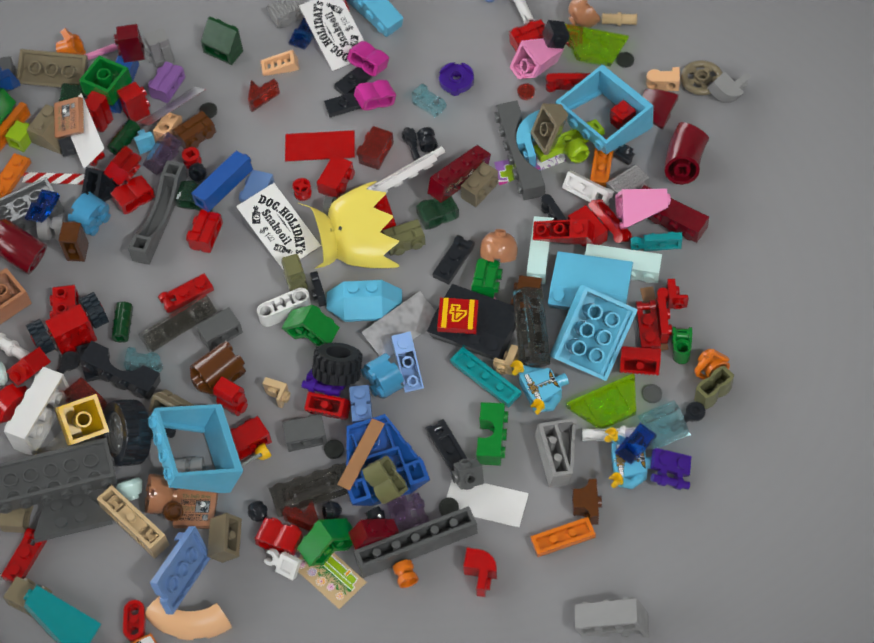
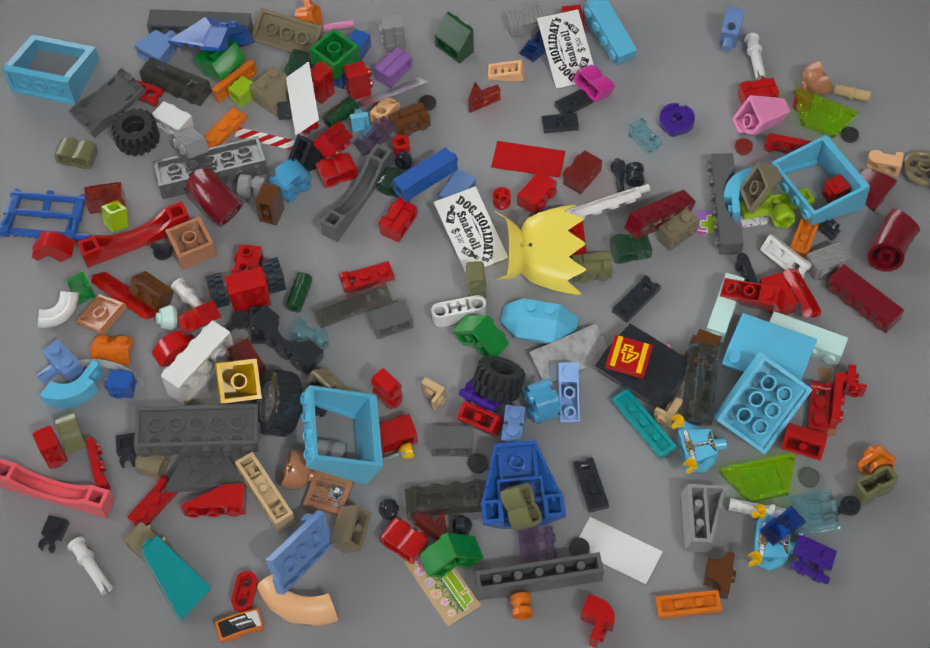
camera: 10 degrees right, 0 degrees up
(43, 207) = (248, 164): clear blue slope -> none
(68, 117) = (292, 83): nougat tile -> none
(93, 538) = (223, 500): none -> red slope
(129, 43) = (366, 22): dark red brick -> none
(130, 488) = (270, 458): light aqua cone -> none
(173, 511) = (306, 491): reddish brown plate -> none
(214, 365) = (378, 355): reddish brown cylinder -> none
(286, 563) = (405, 568): white plate -> none
(317, 292) = (495, 302): black plate -> none
(360, 454) = (502, 475): medium nougat sticker -> none
(372, 530) = (497, 555): dark red brick -> none
(375, 95) = (593, 120): dark pink brick -> none
(375, 513) = (504, 541): black plate -> none
(467, 473) = (605, 518): dark grey brick -> none
(486, 277) = (665, 324): green brick -> none
(490, 448) = (633, 498): green arch -> none
(499, 246) = (684, 295): nougat cylinder -> none
(555, 34) = (785, 95): black brick -> none
(639, 204) = (835, 283): bright pink slope -> none
(657, 242) = (846, 324): teal plate -> none
(681, 342) = (850, 430): green piece -> none

